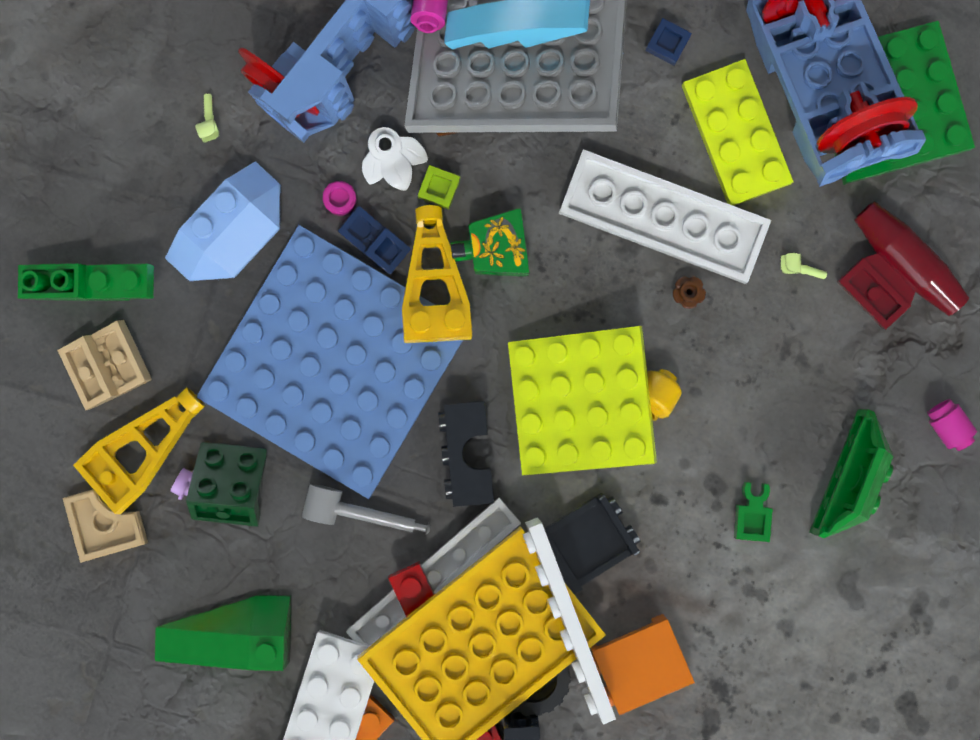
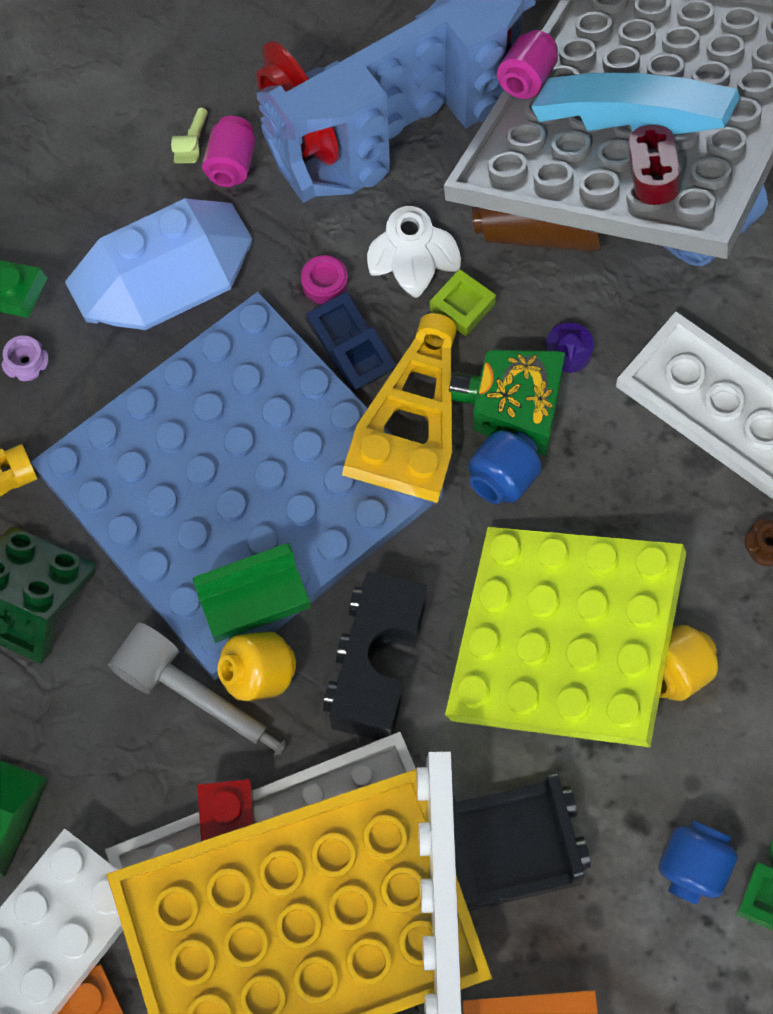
camera: 20 degrees right, 20 degrees down
(152, 324) = (23, 347): none -> lavender plate
(239, 124) = (229, 151): none -> dark pink brick
(377, 445) = (251, 592): none -> green panel
(395, 487) = (256, 666): none -> yellow head
(506, 299) = (504, 467): none -> blue head
(519, 194) = (575, 342): none -> dark purple tile
(551, 68) = (647, 164): none -> dark red beam
(703, 516) = (697, 862): none -> blue head

